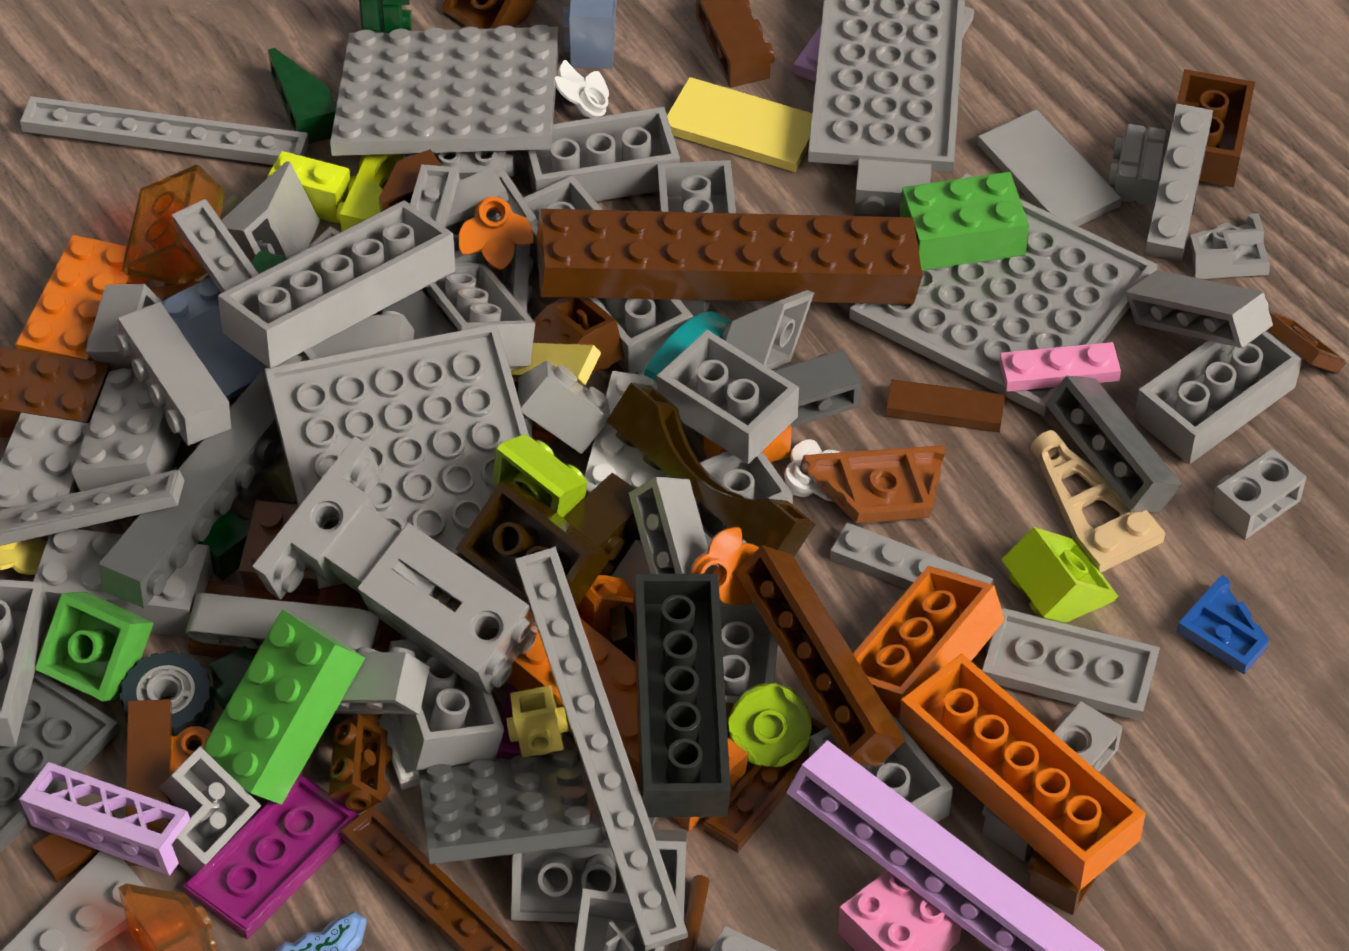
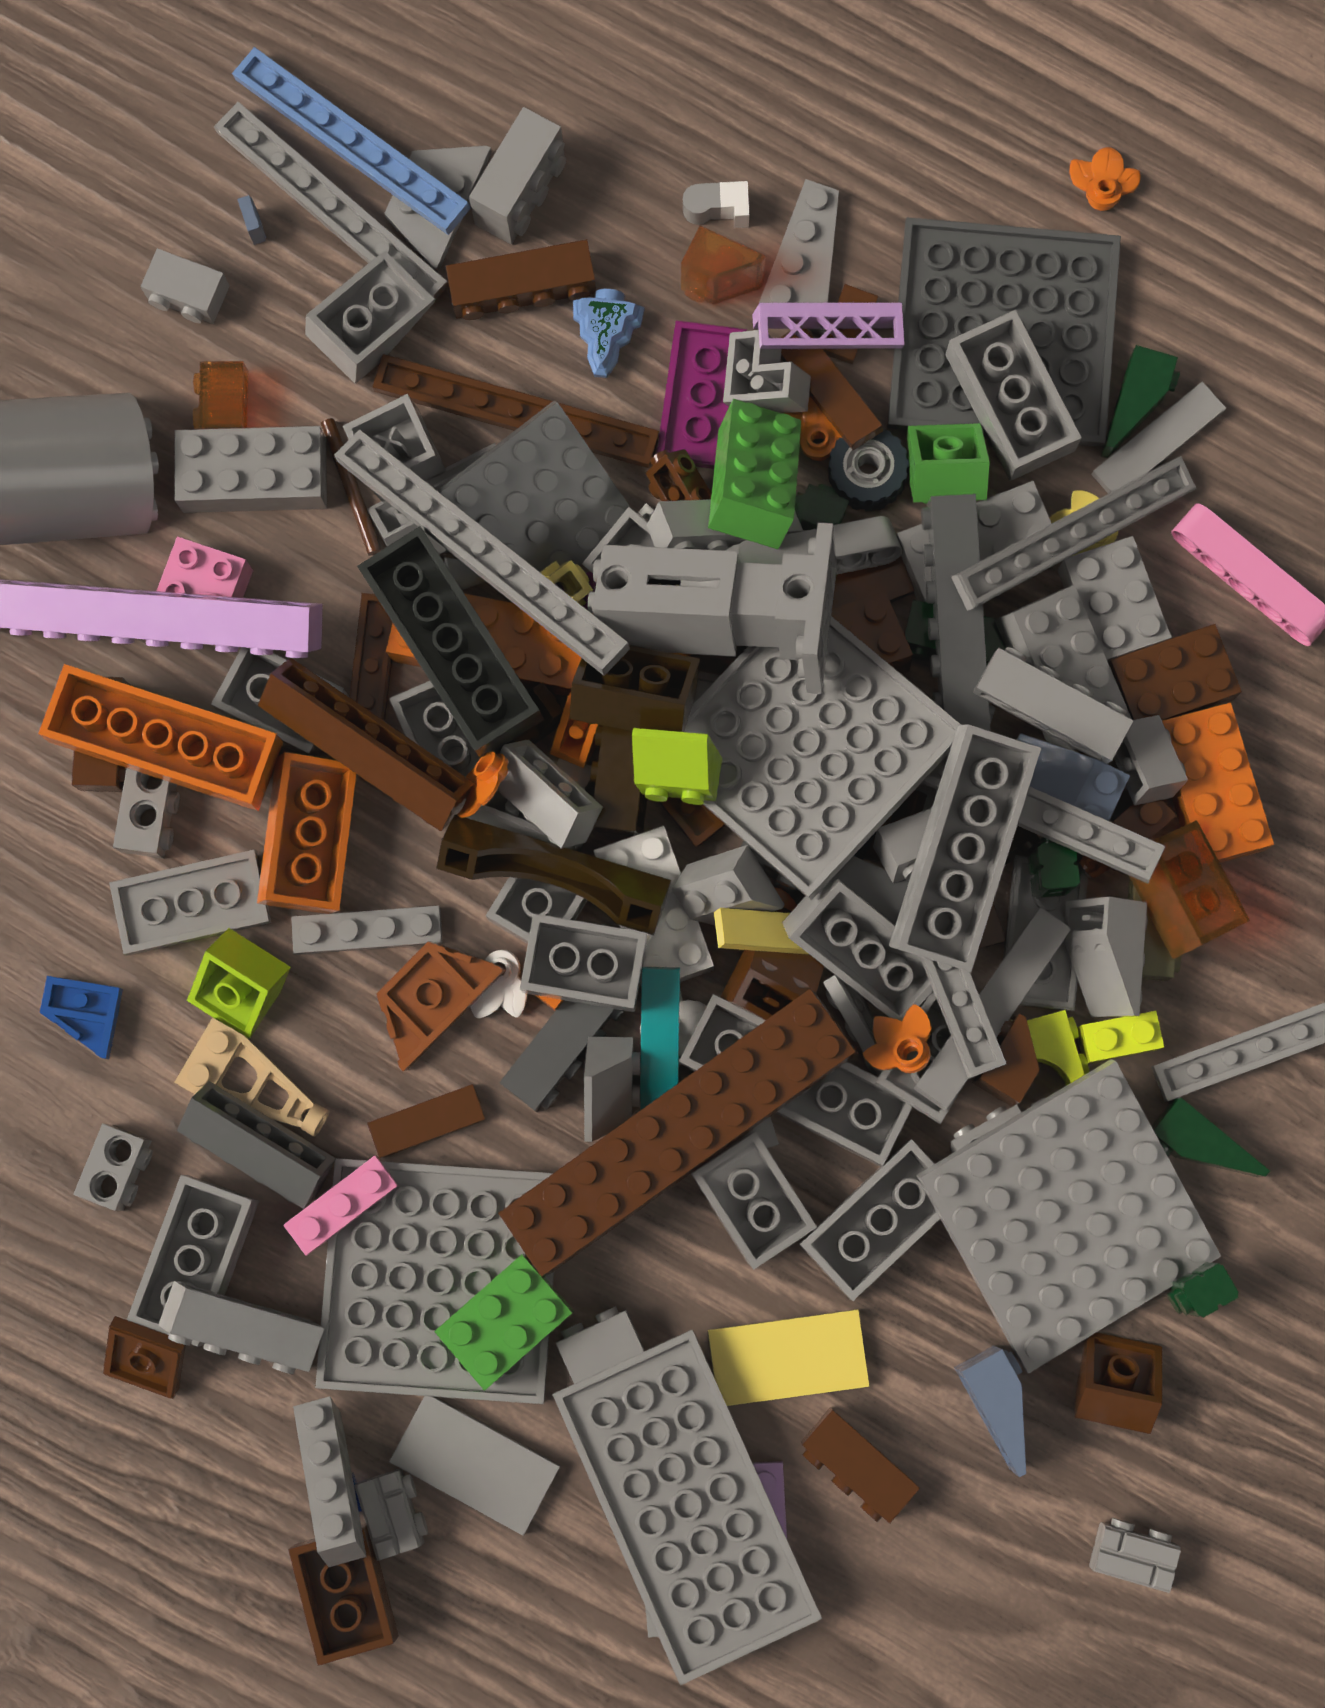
camera: 155 degrees right, 30 degrees up
(587, 93) = (958, 1310): white plate -> none
(770, 724) = (384, 685): lime tile -> none
(1230, 251) = (260, 1457): light grey slope -> none

